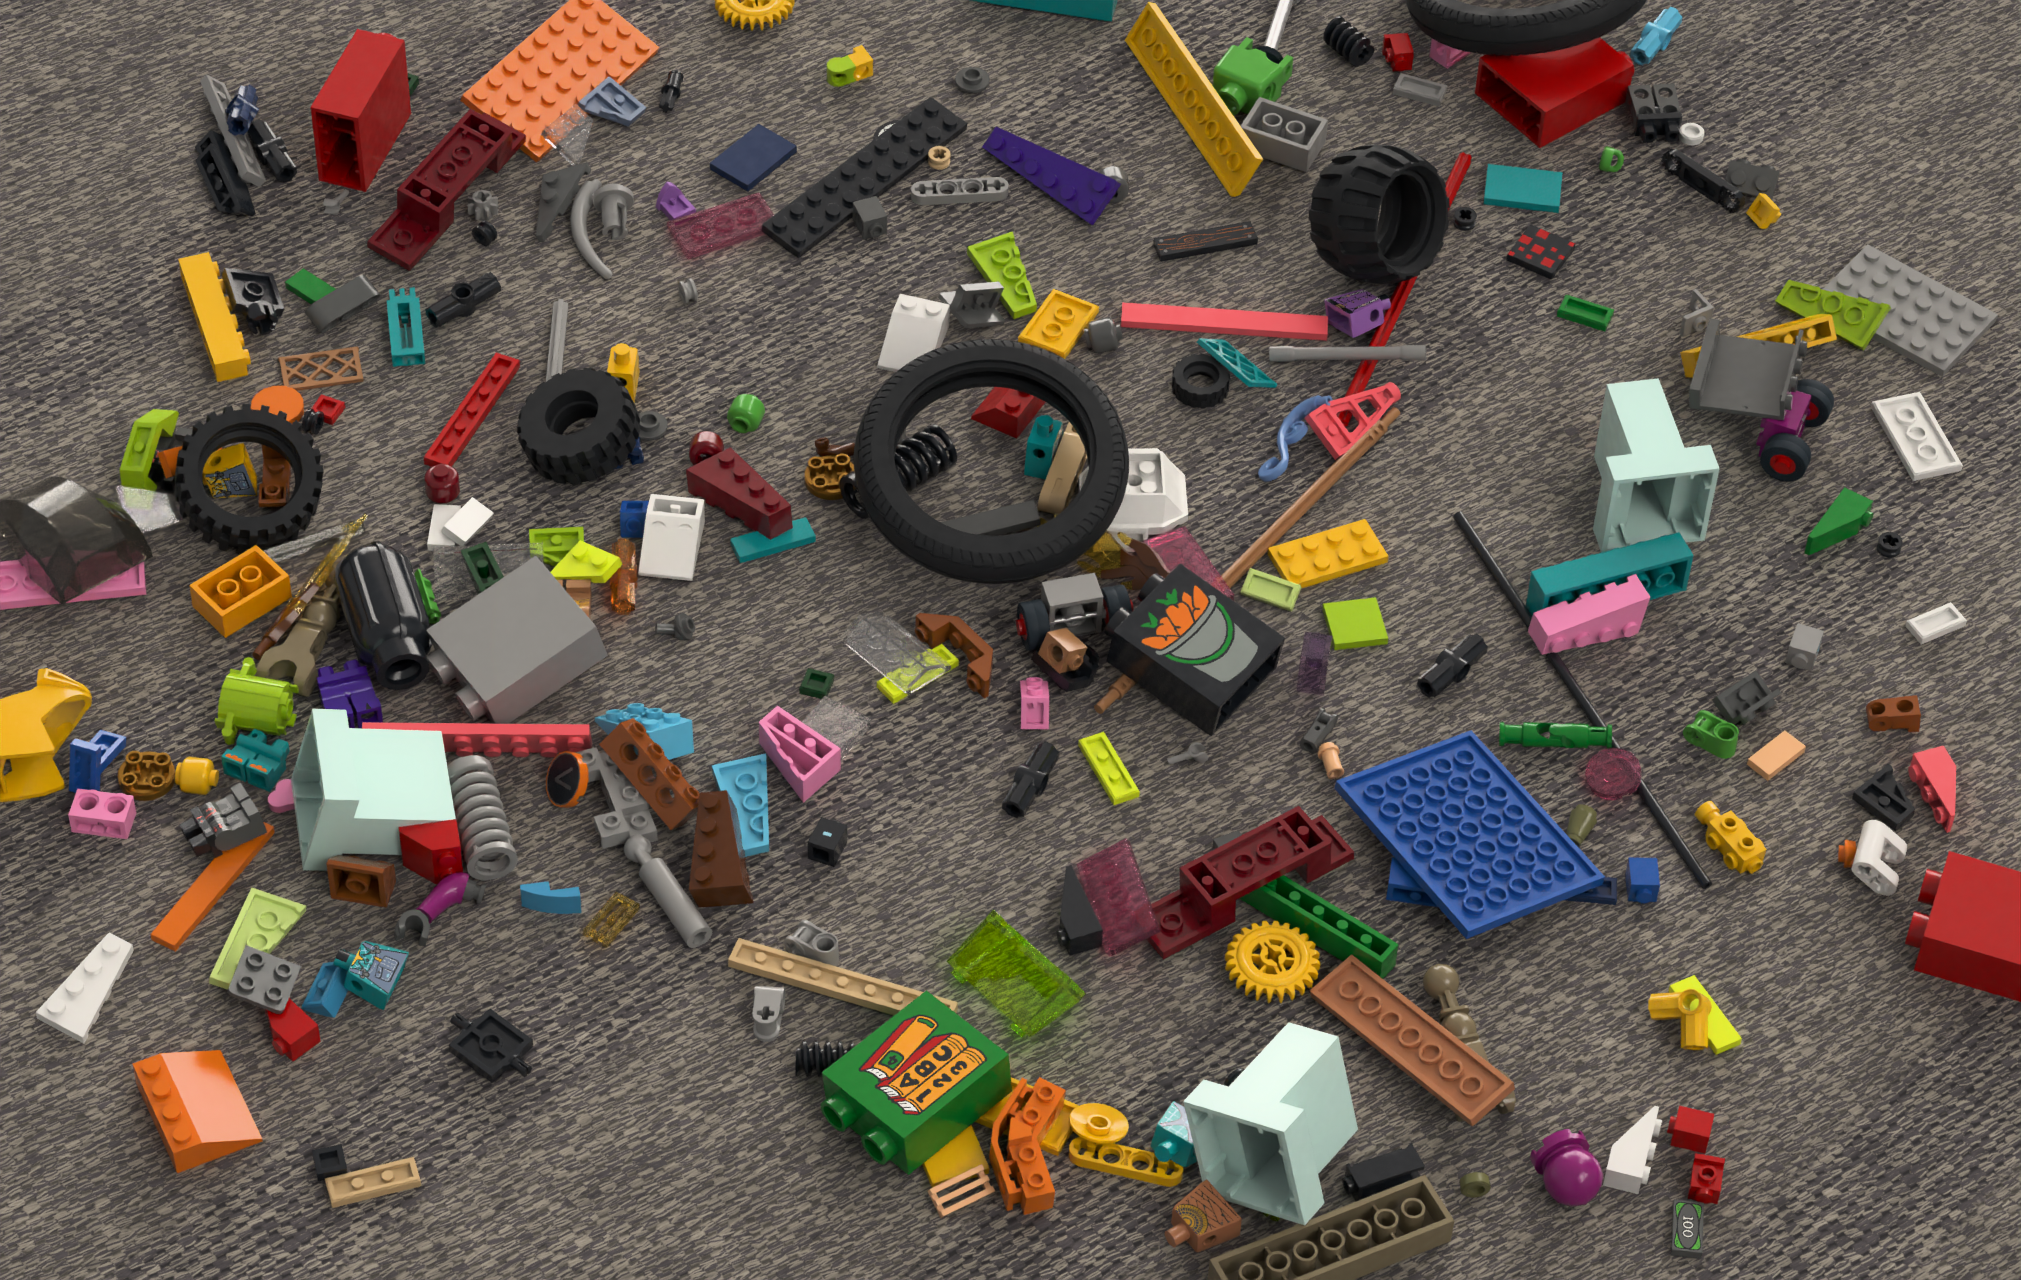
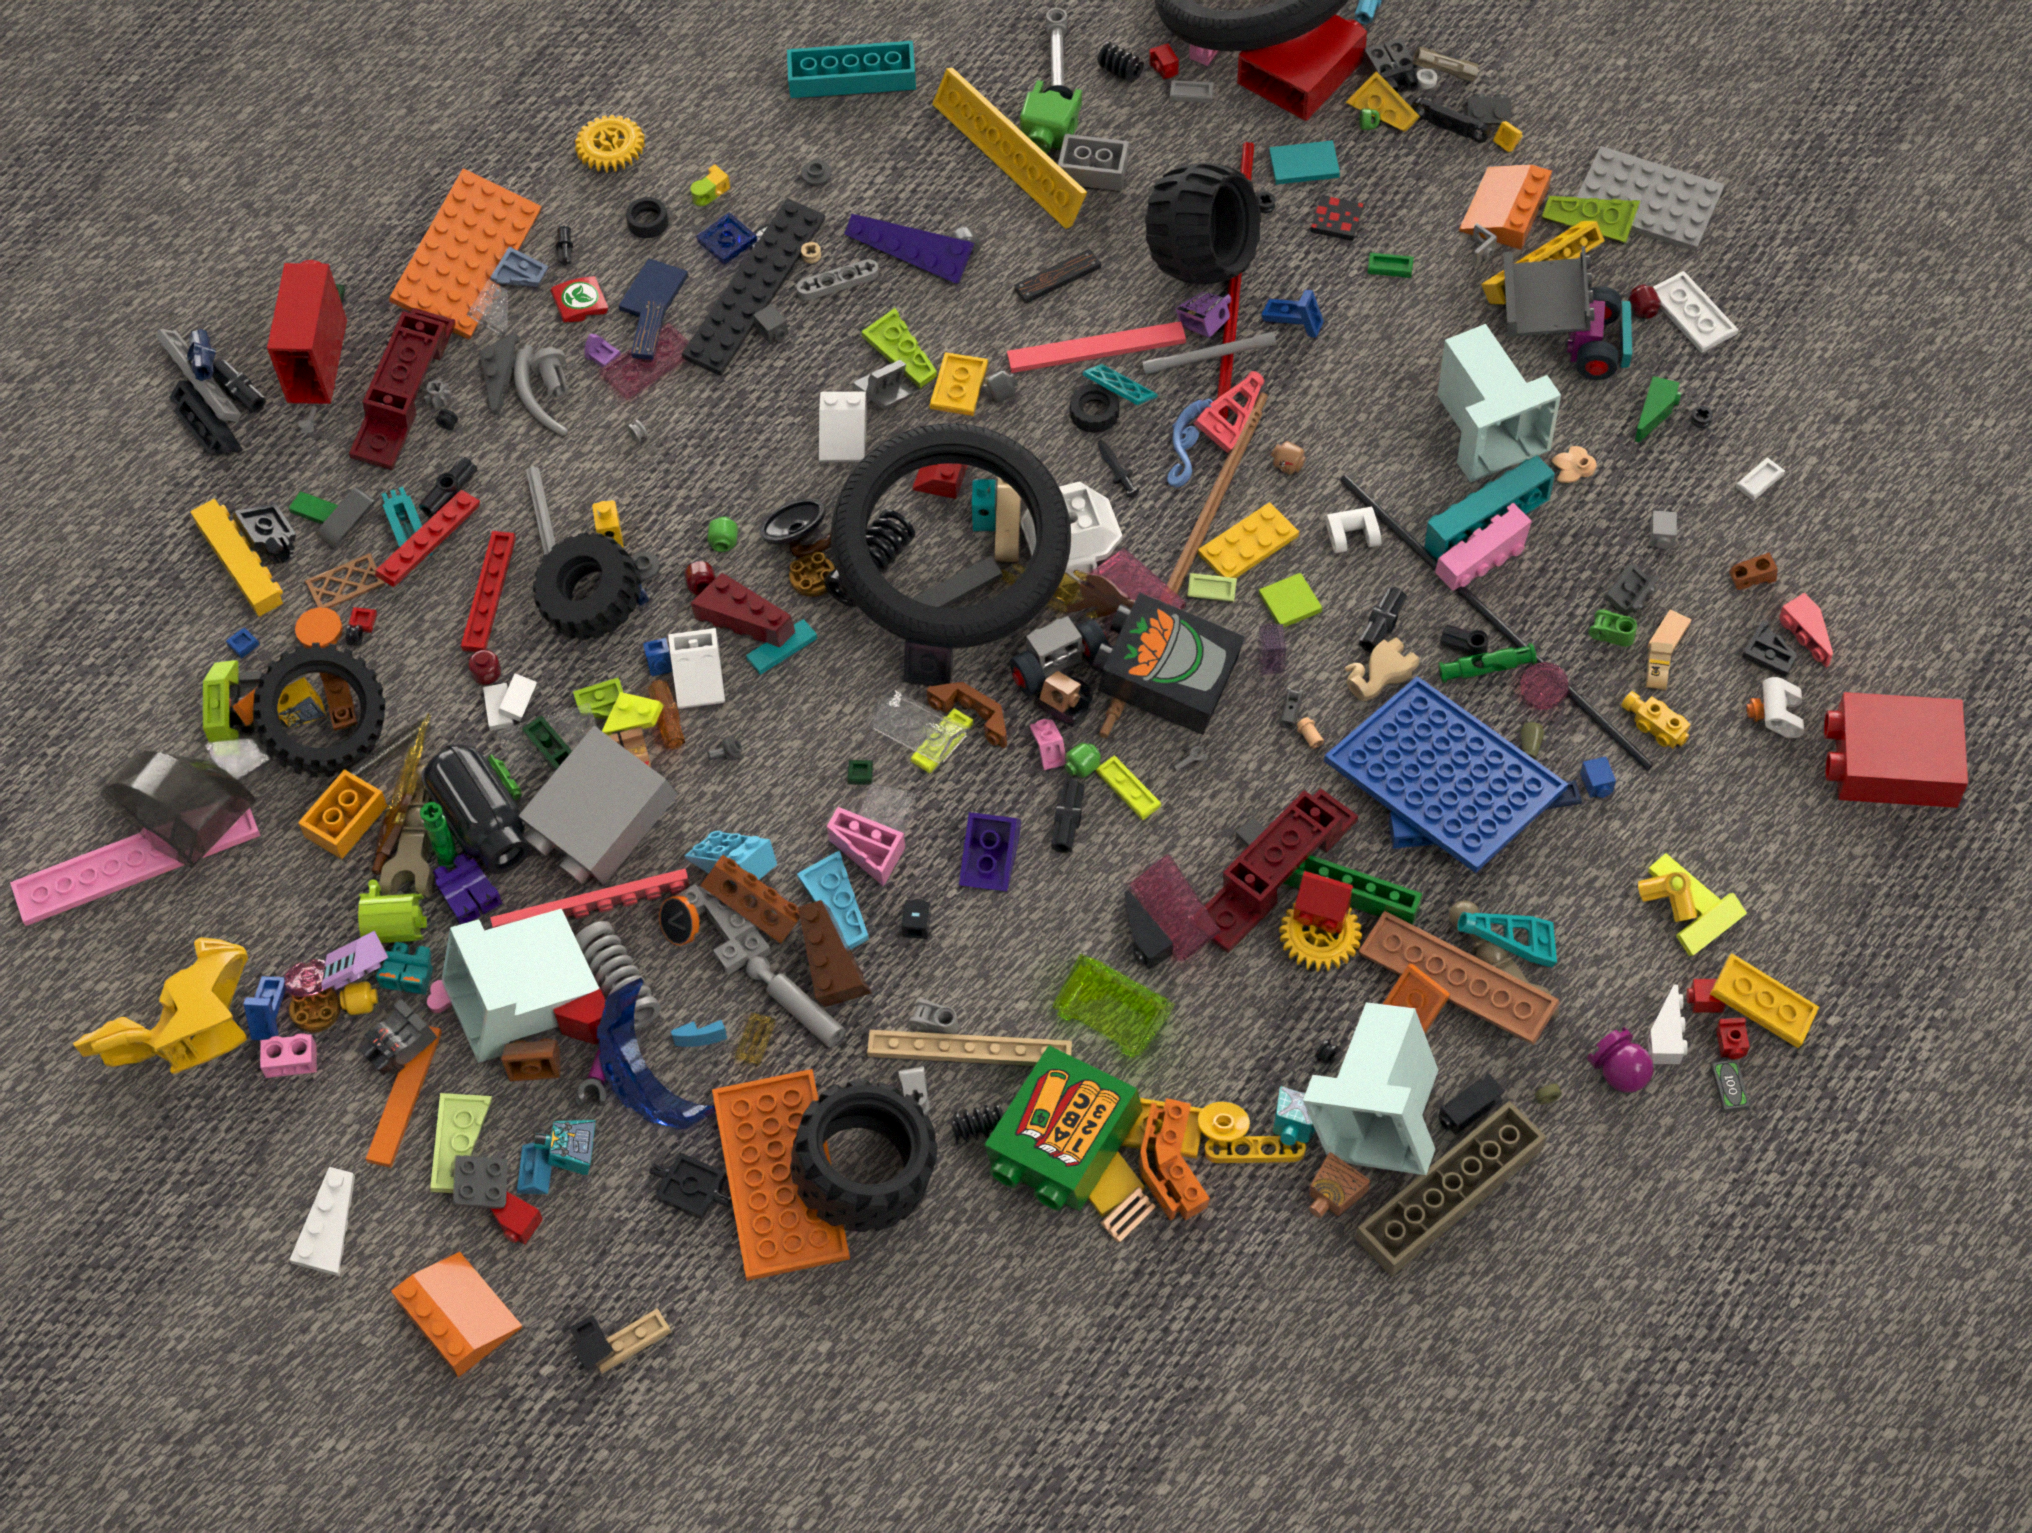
camera: 10 degrees left, 10 degrees up
(150, 744) = (305, 978): none -> clear pink tile
(191, 402) = (242, 642): none -> blue tile
(201, 733) = (352, 961): none -> lavender slope
(327, 1177) = (592, 1352): none -> black brick
(333, 619) = (439, 835): none -> green piece
(423, 343) = (427, 538): none -> red plate
(460, 909) = (629, 1073): none -> clear blue windscreen
(592, 1058) = (757, 1140): none -> orange plate
(668, 146) = (578, 299): none -> slope
(678, 1102) = (871, 1108): none -> black tyre
(733, 193) = (648, 330): none -> dark blue tile
(769, 70) = (651, 229): none -> black tyre
(826, 418) = (793, 522): none -> black dish
(850, 122) = (726, 238): none -> clear blue plate
(926, 587) = (927, 663): none -> black plate
(932, 792) = (989, 851): none -> dark purple slope
(1065, 727) = (1082, 760): none -> bright green head
(1208, 455) = (1121, 475): none -> black sword
(1281, 923) = (1323, 902): none -> red slope
(1362, 1050) = (1420, 992): none -> orange plate
(1401, 479) = (1288, 457): none -> medium nougat head
(1438, 713) = (1385, 668): none -> tan hips
(1450, 558) = (1352, 520): none -> white connector
(1467, 334) = (1296, 312): none -> blue bracket
(1521, 1020) = (1540, 933): none -> teal plate
(1537, 707) = (1465, 640): none -> black piece
(1636, 145) = (1383, 98): none -> yellow wing
(1721, 1059) = (1711, 924): none -> neon yellow tile
(1725, 560) = (1574, 464): none -> light nougat plate
(1731, 130) = (1432, 60): none -> dark tan axle
(1742, 279) = (1508, 202): none -> orange slope
(1751, 782) = (1658, 665): none -> tan leg
(1754, 1148) = (1764, 1000): none -> yellow tile
(1829, 440) = (1625, 334): none -> teal tile
(1862, 411) = (1644, 301): none -> dark red head

